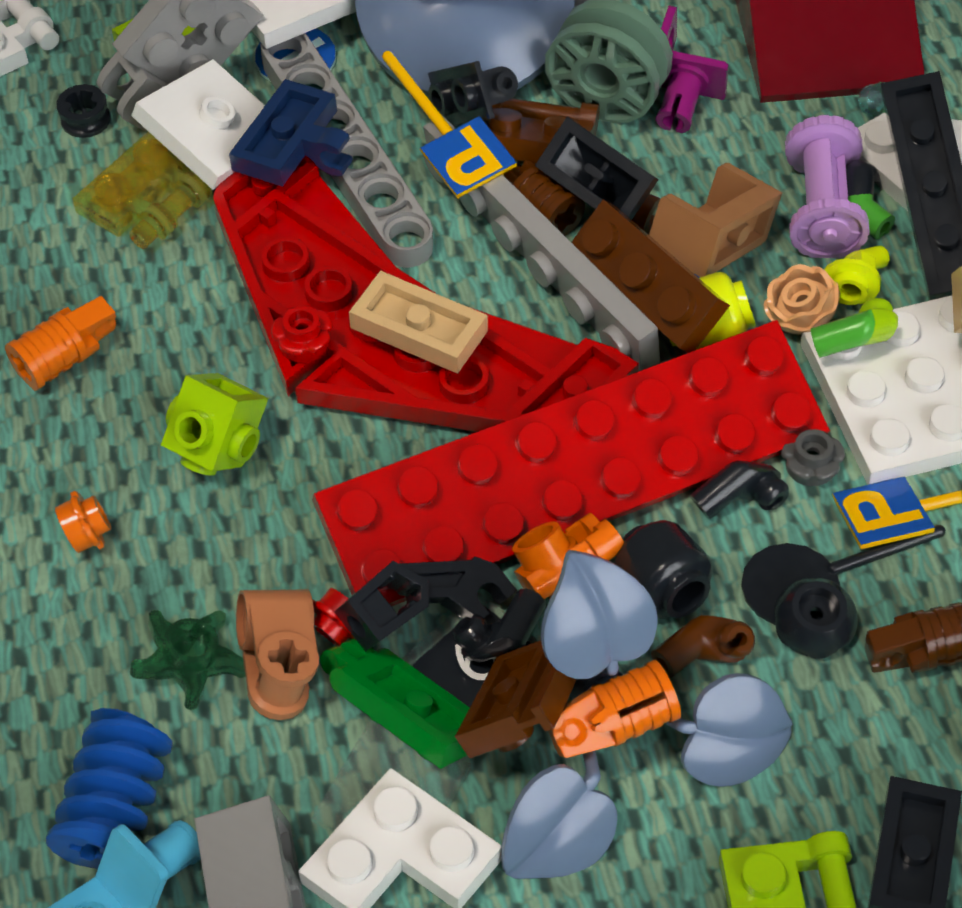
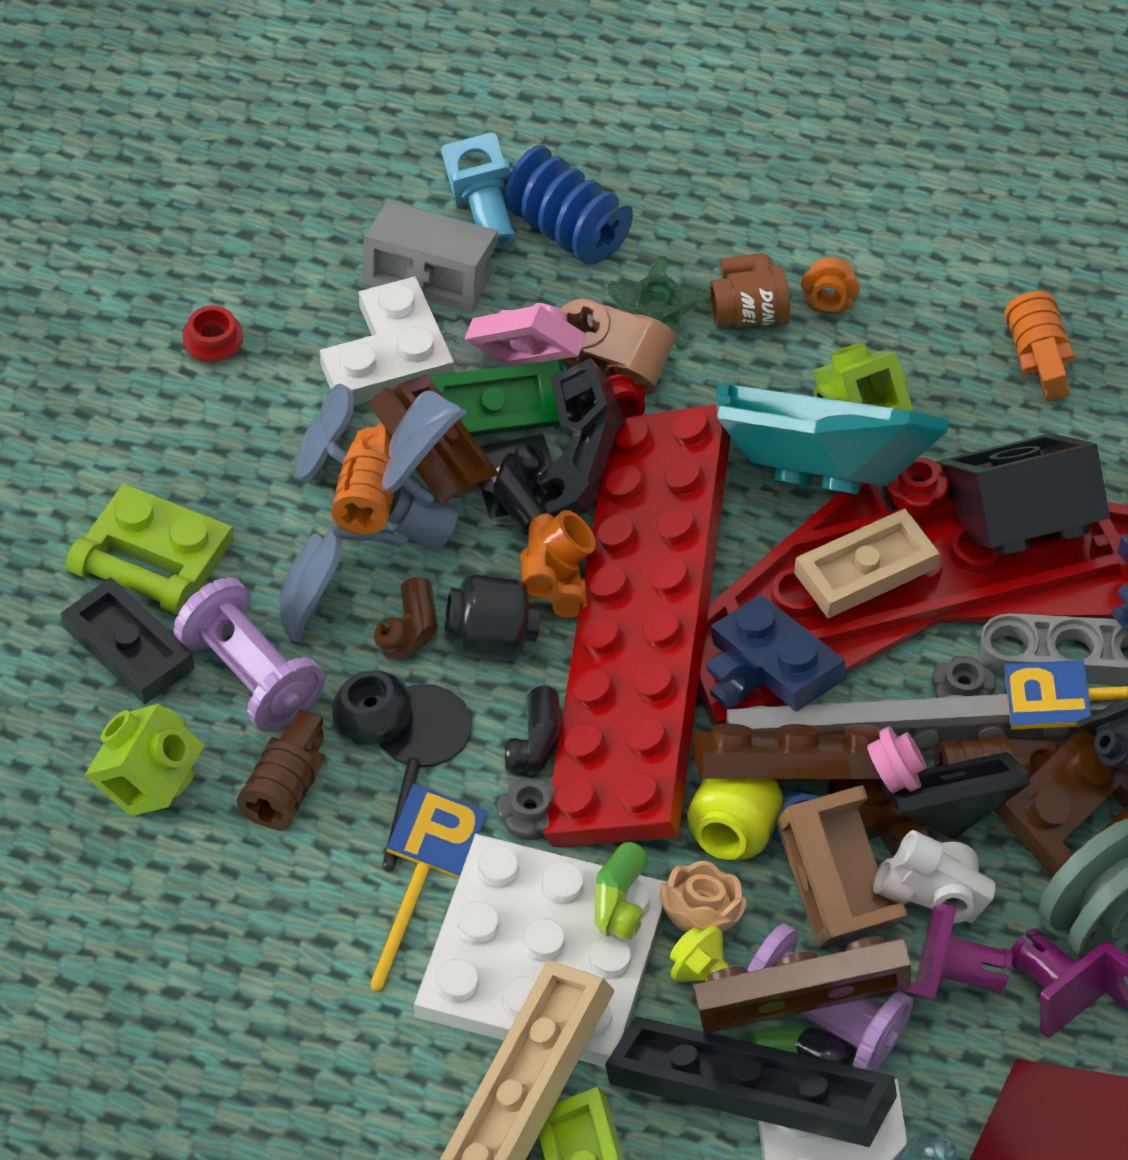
camera: 120 degrees right, 0 degrees up
(136, 571) = (750, 293): none -> dark orange piece
(262, 253) = (1027, 491): none -> black slope
(305, 396) = (825, 436): none -> teal wedge
(339, 671) = (526, 335): none -> bright pink plate
(467, 249) = (947, 675): none -> dark grey plate
(563, 333) = (771, 650): none -> dark blue plate
(625, 182) = (897, 760): none -> bright pink plate
(675, 170) = (935, 875): none -> white plate
(746, 145) = (956, 959): none -> magenta bracket
(856, 163) = (803, 983): none -> reddish brown plate
(868, 679) = (276, 684): none -> lavender hose

